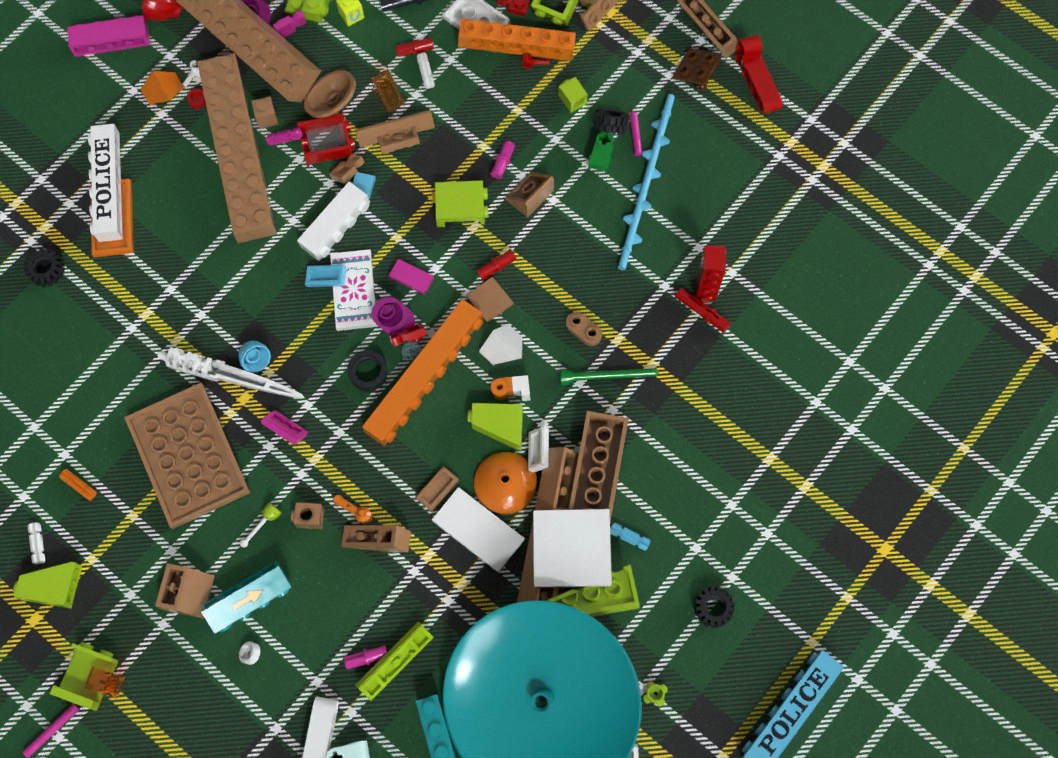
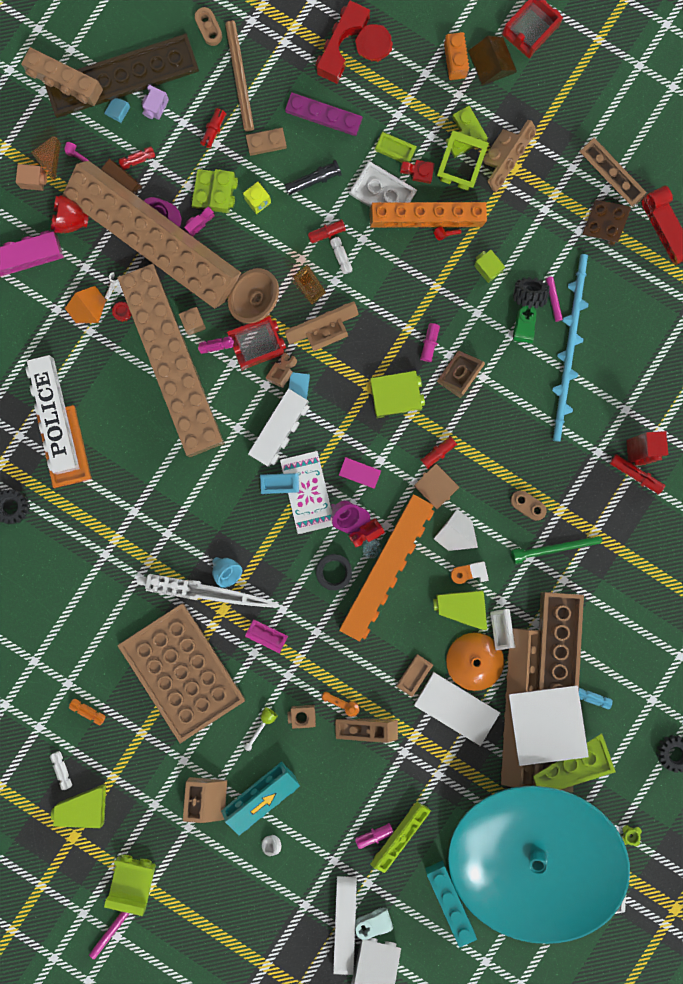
camera: 10 degrees left, 15 degrees up
(104, 682) = (151, 889): clear orange slope -> none

